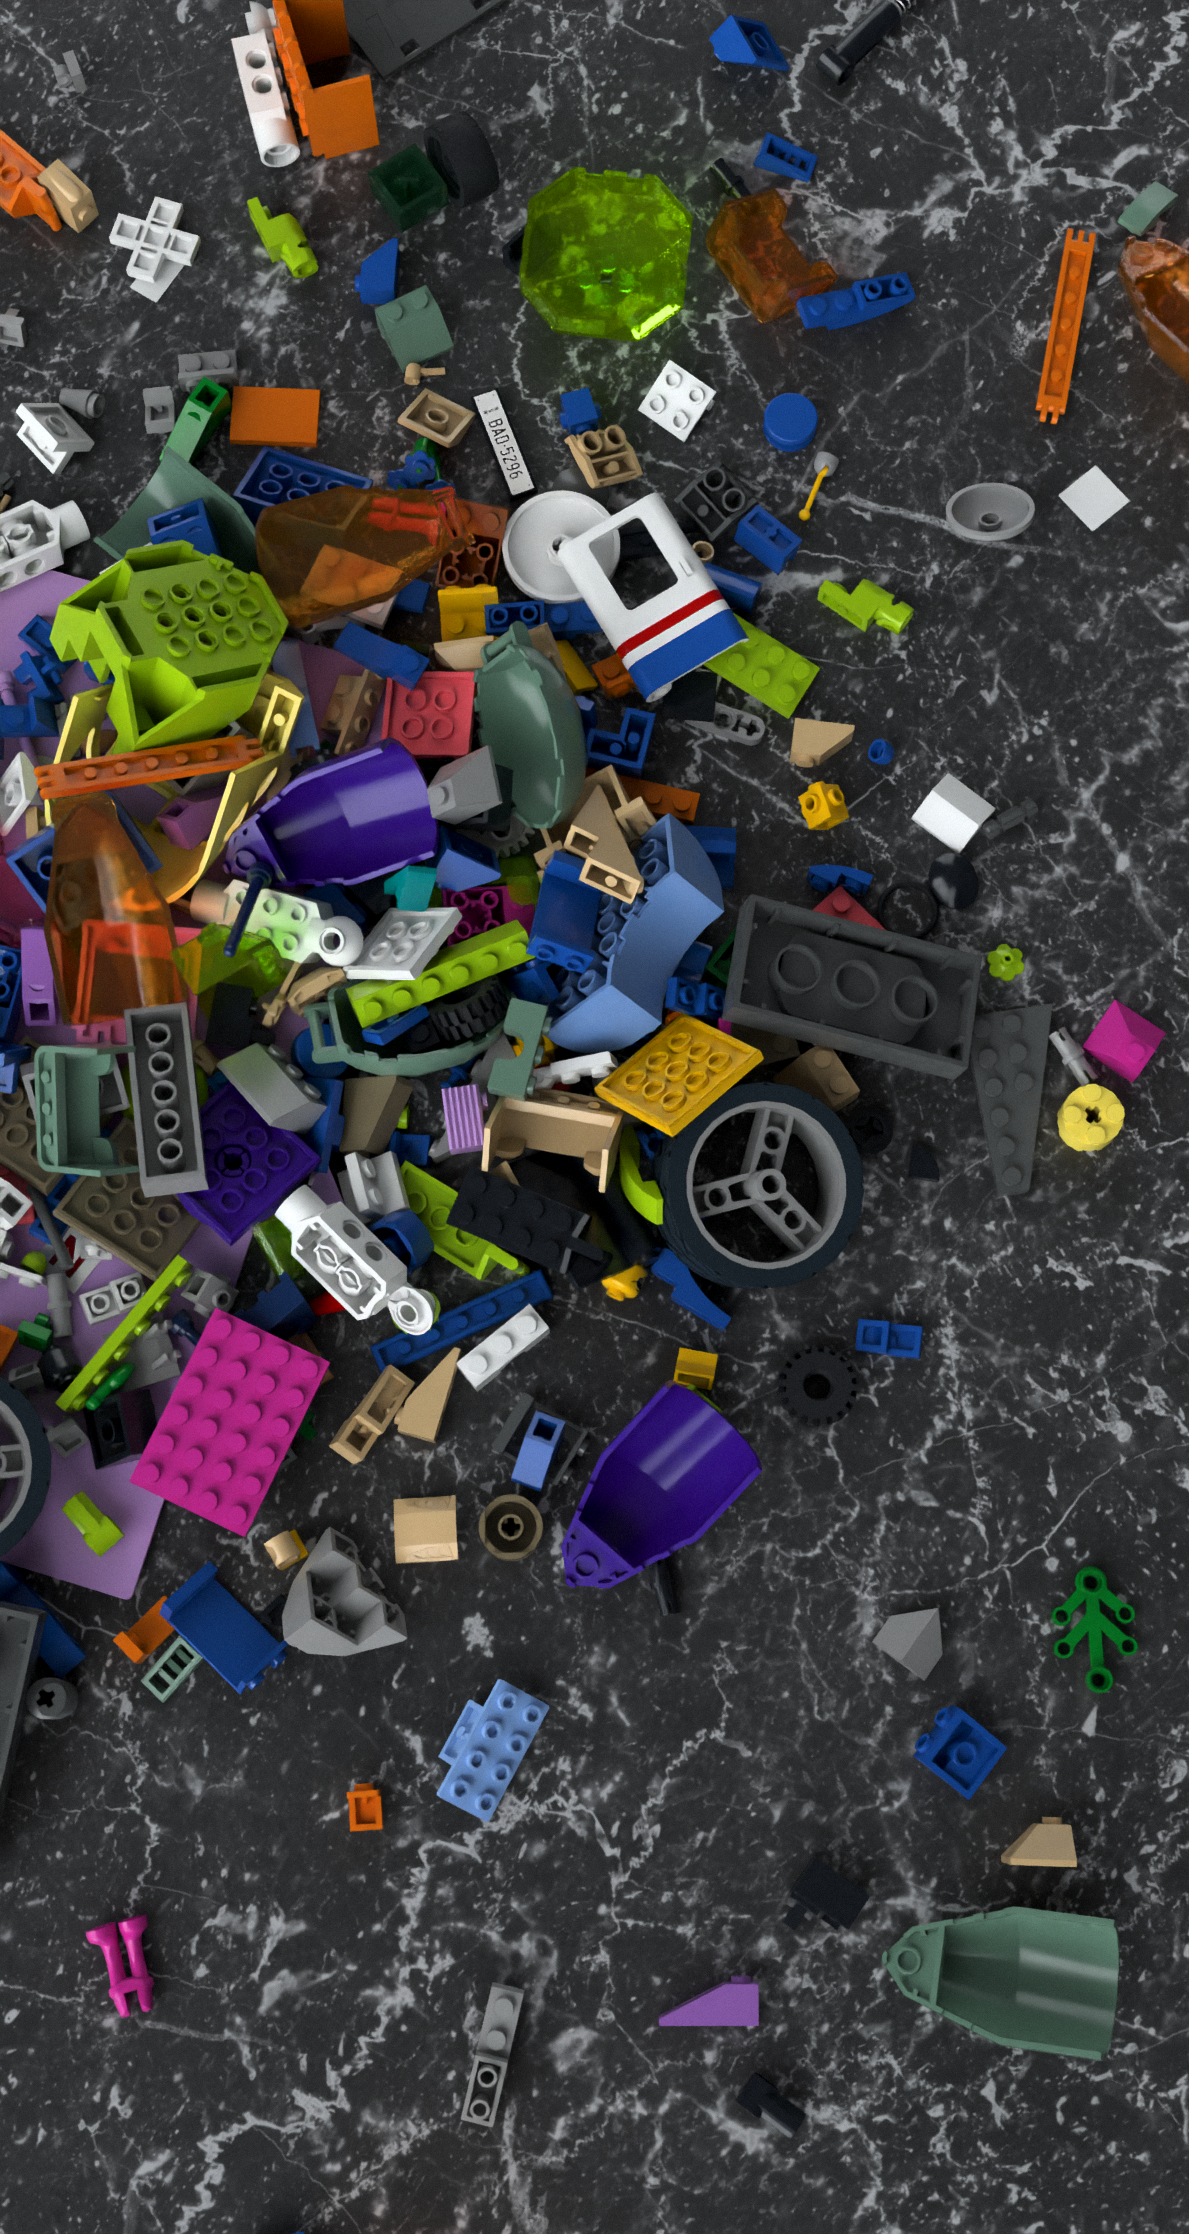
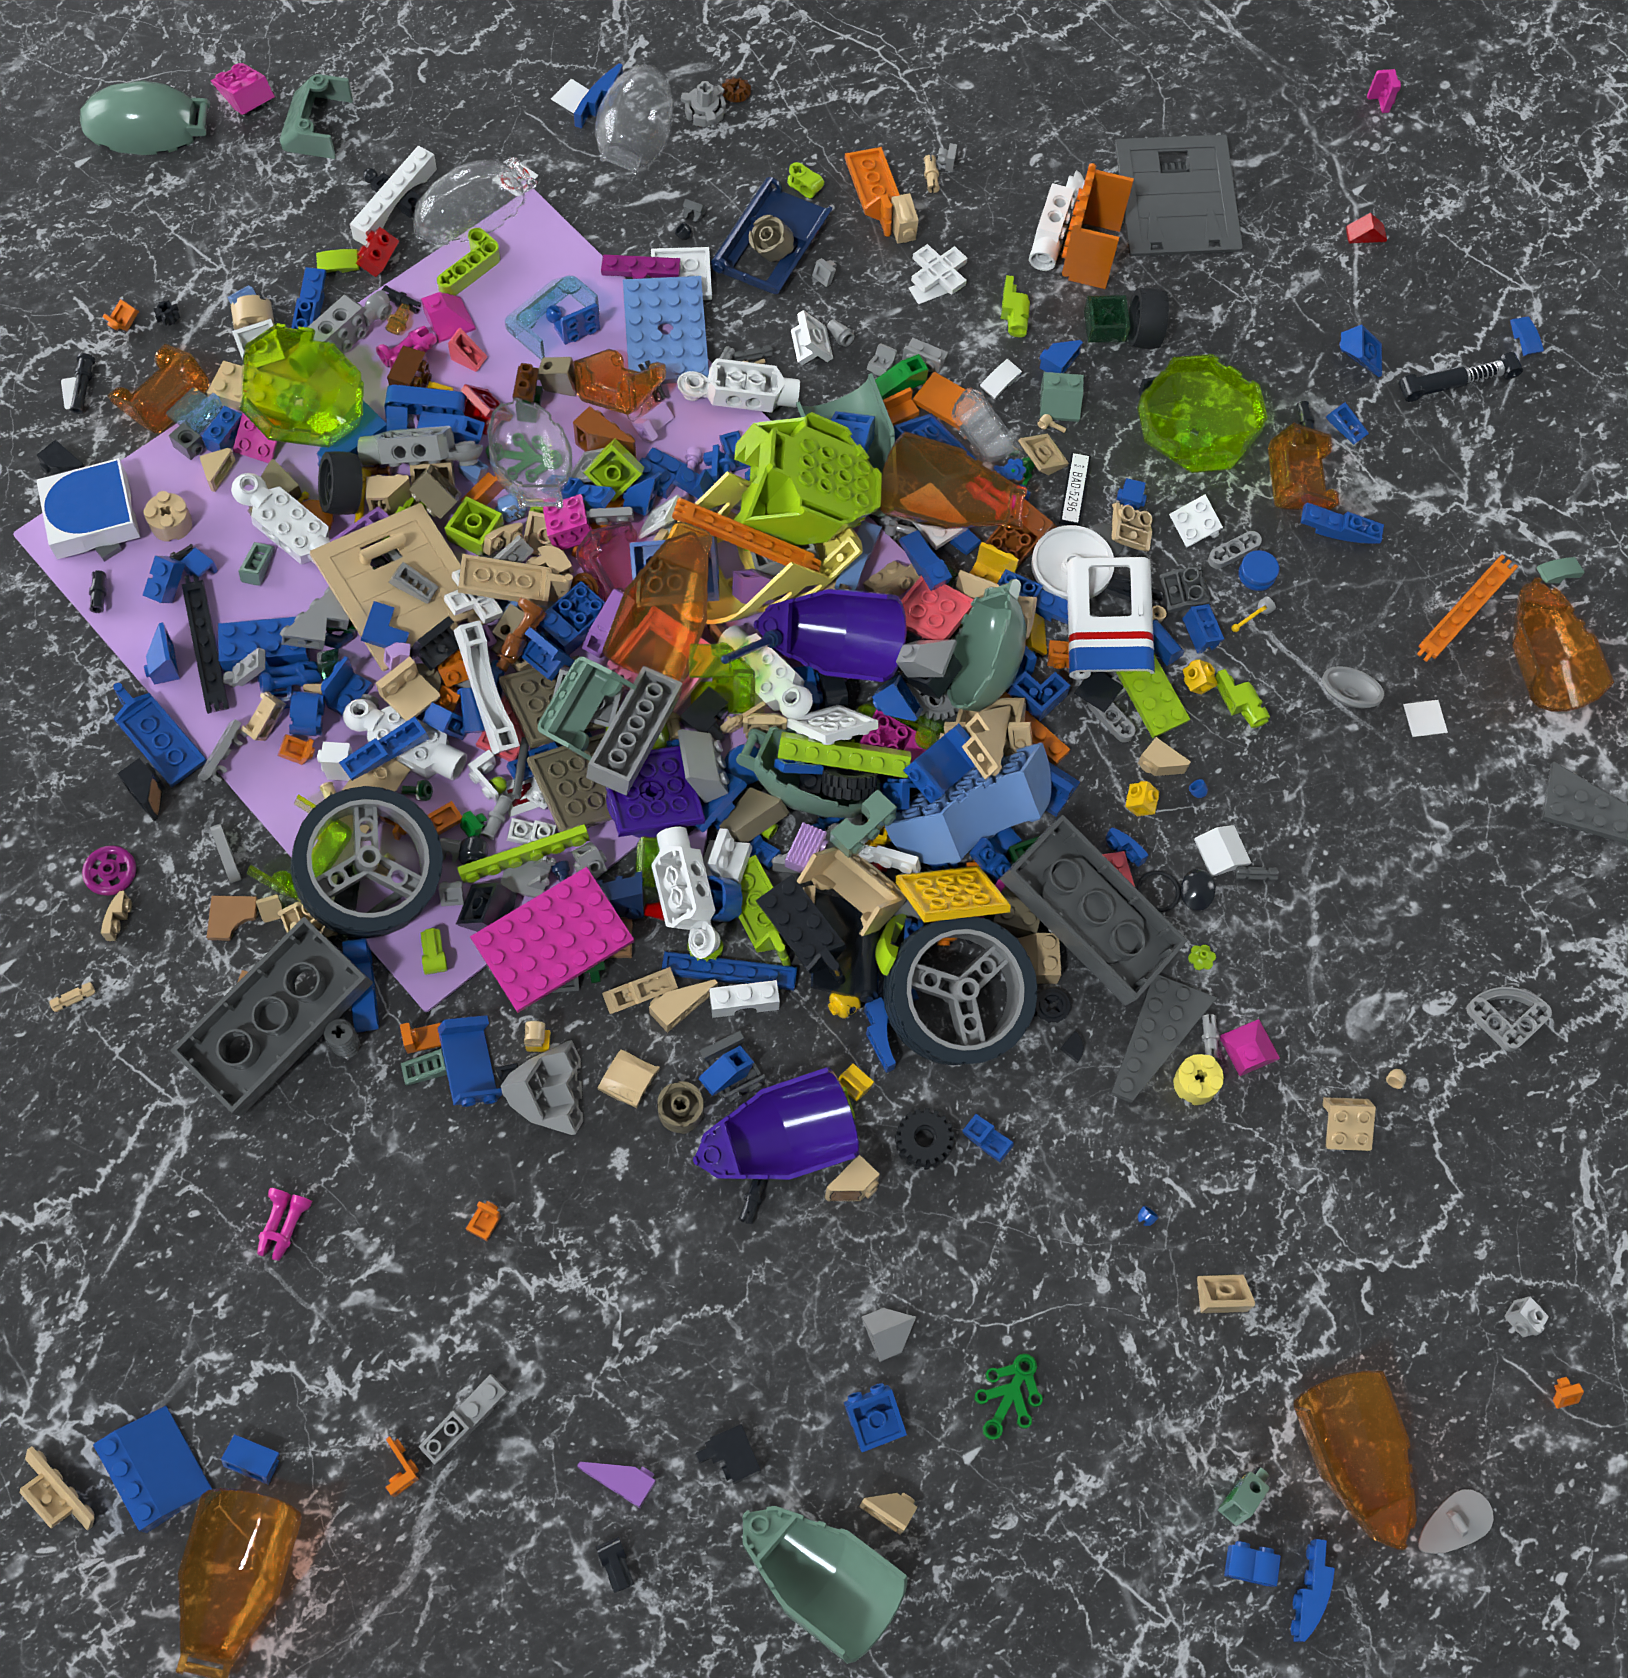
camera: 25 degrees right, 10 degrees down
(63, 108) = (931, 174): none -> tan pin
(114, 1381) = (496, 877): green piece -> none
(222, 461) = (901, 407): none -> orange panel
(323, 347) = (1000, 378): none -> white slope
(346, 430) = (984, 428): none -> clear windscreen
(412, 887) = (858, 695): teal slope -> none
(467, 2148) = (401, 1481): none -> orange bracket
(488, 1748) = (582, 1232): light blue bracket -> none
(744, 423) = (1230, 557): none -> light grey beam
(771, 1492) = (854, 1182): none -> tan slope
(800, 606) = (1199, 676): none -> yellow brick
(1125, 1318) = (1147, 1215): none -> blue hinge

